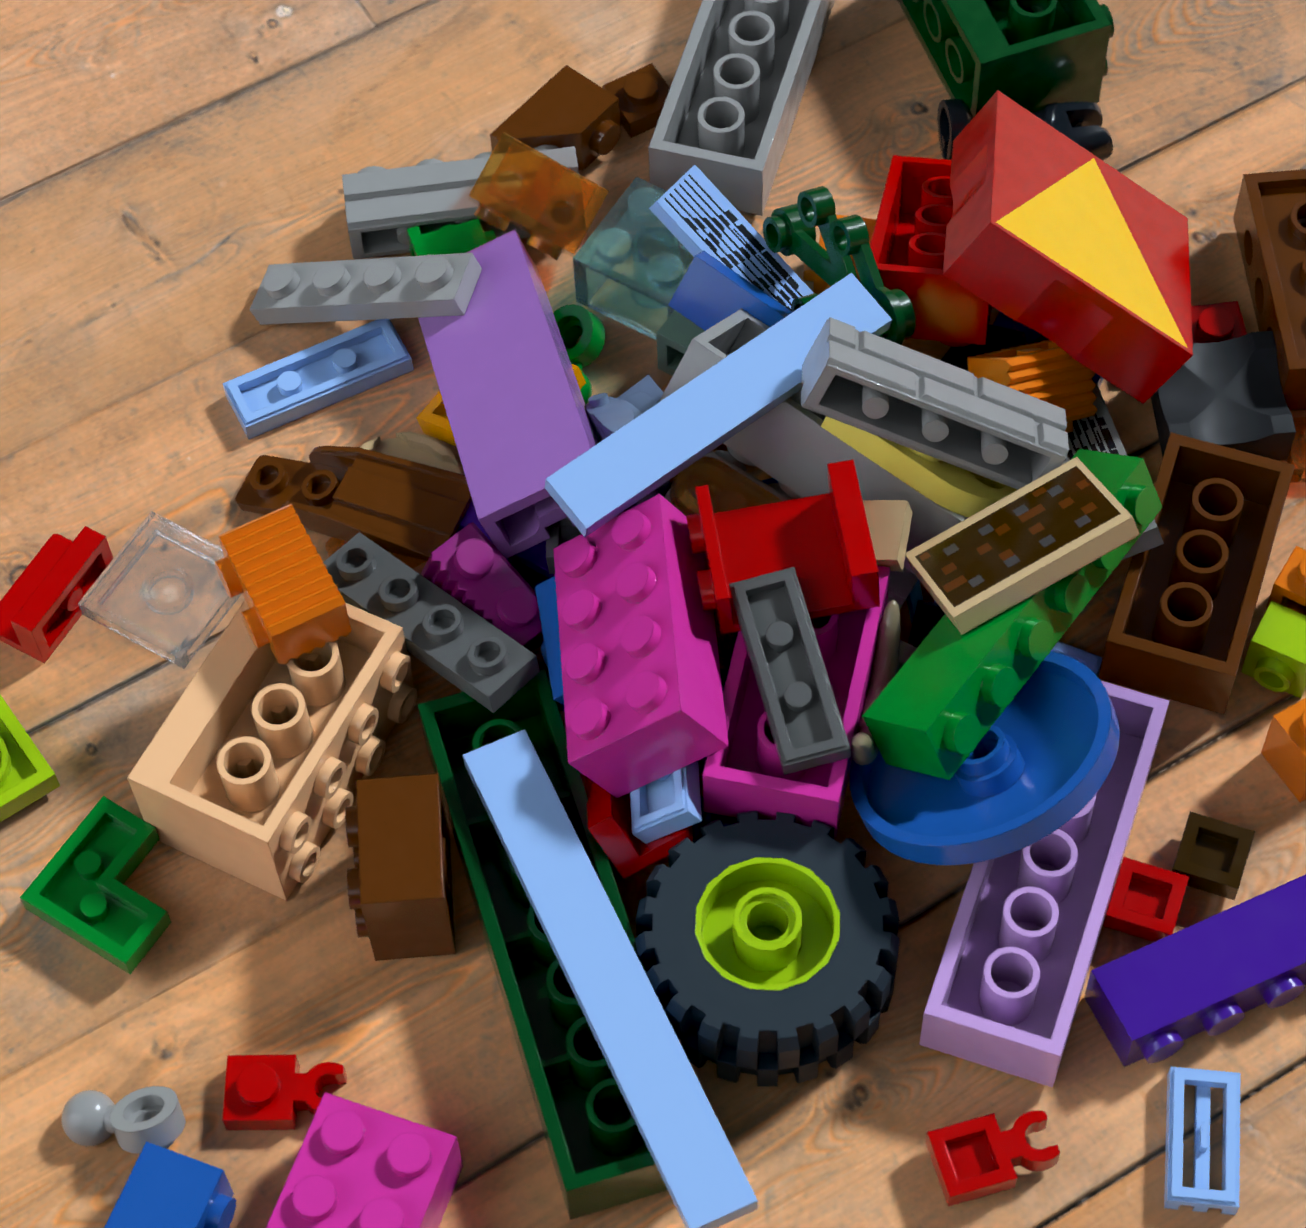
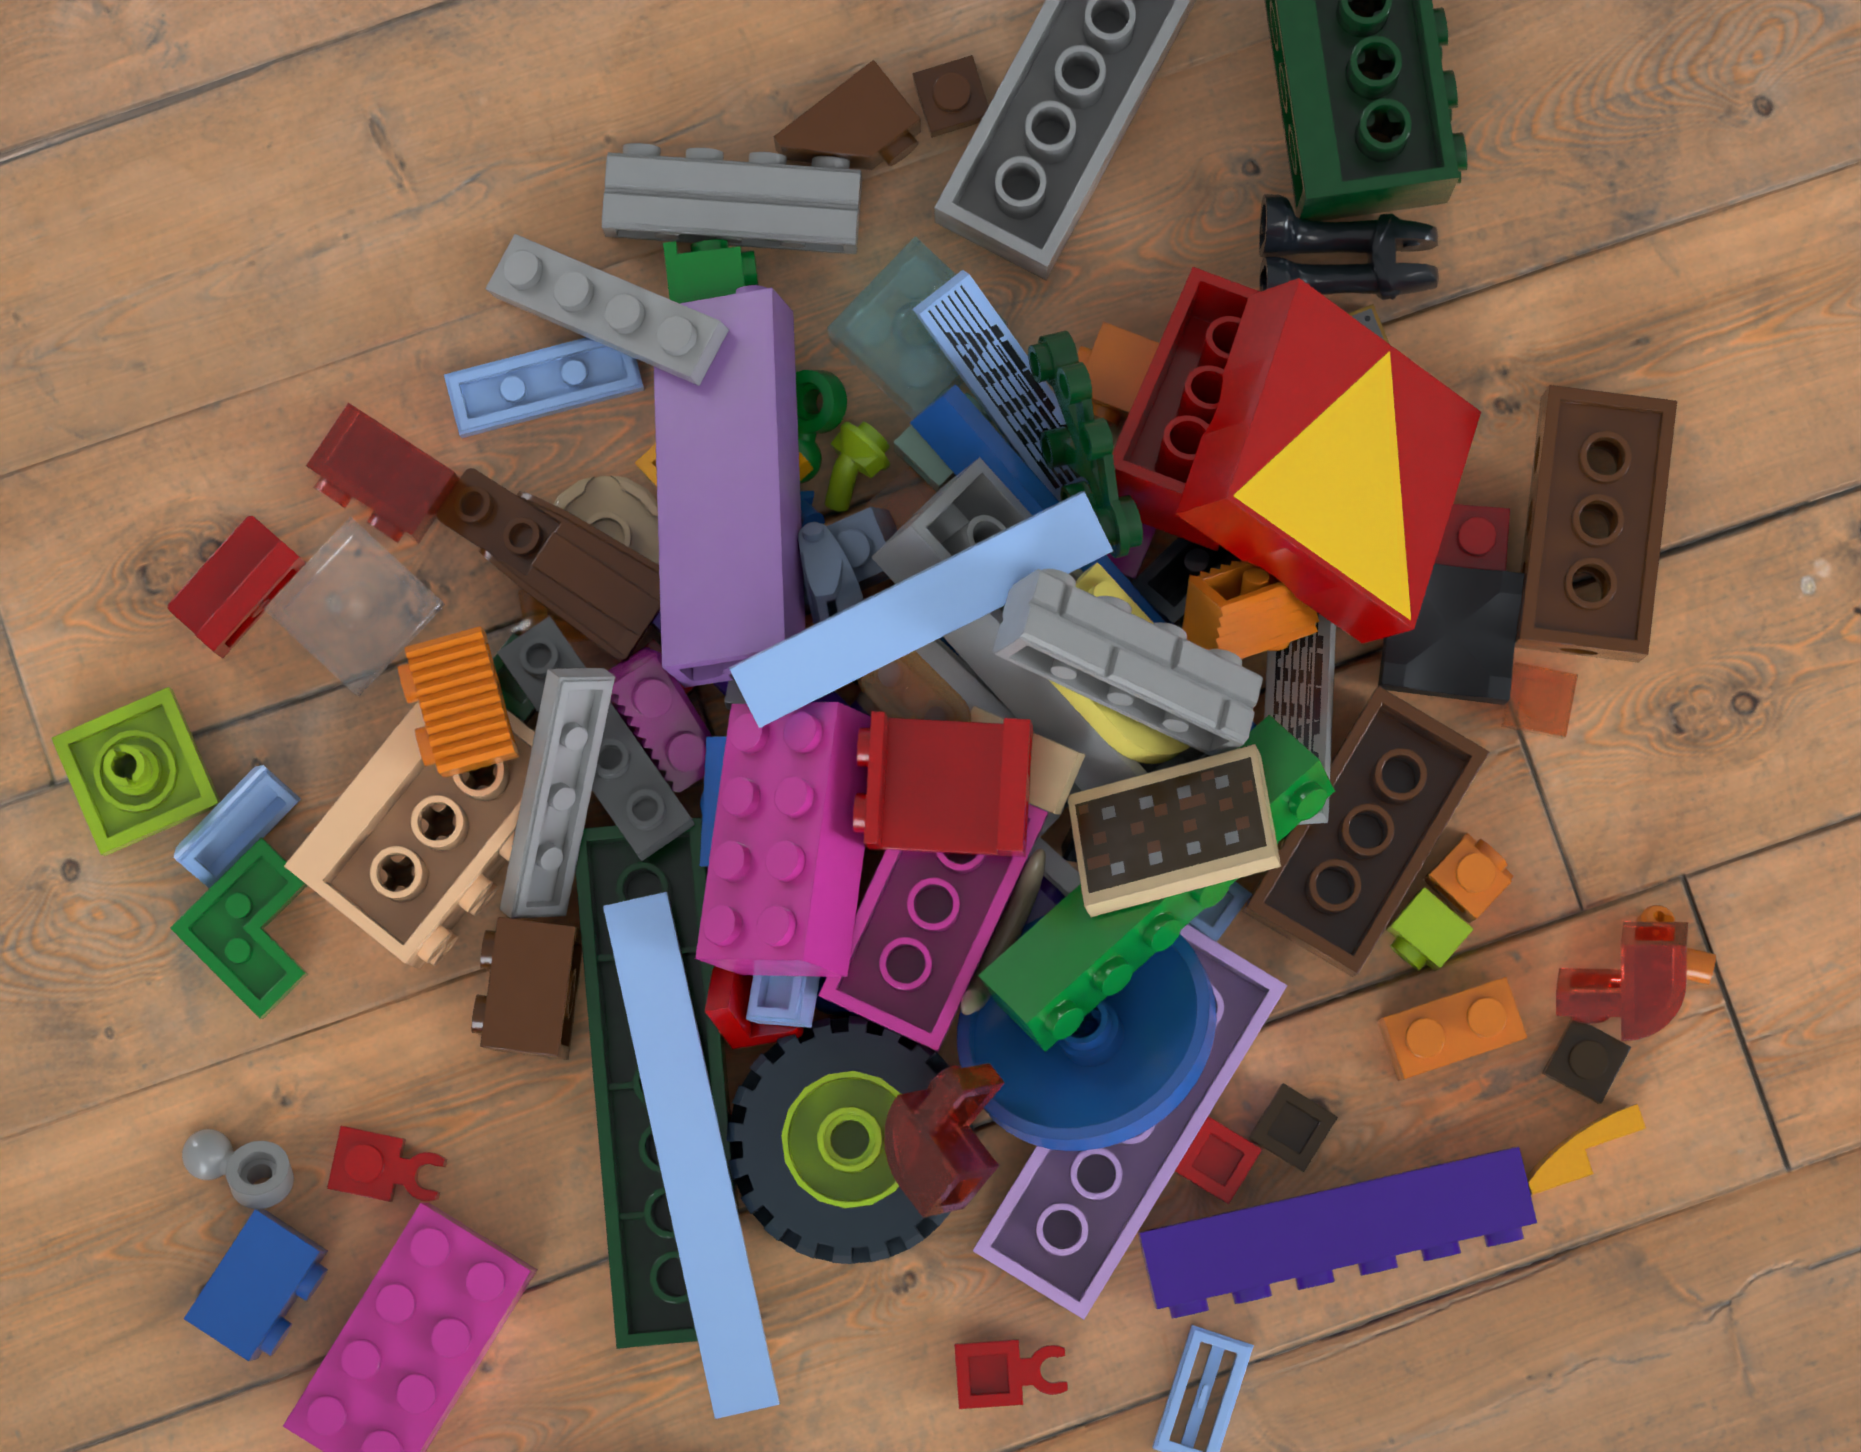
camera: 15 degrees right, 25 degrees up
(92, 771) = (235, 825): none -> light blue tile
(176, 467) = (382, 474): none -> clear red brick
(395, 650) = (557, 792): none -> light grey tile
(537, 197) = (804, 248): clear orange brick -> none
(625, 364) = (858, 450): none -> lime plate
(789, 671) = (921, 913): dark grey tile -> none
(853, 882) = (931, 1143): none -> clear red brick

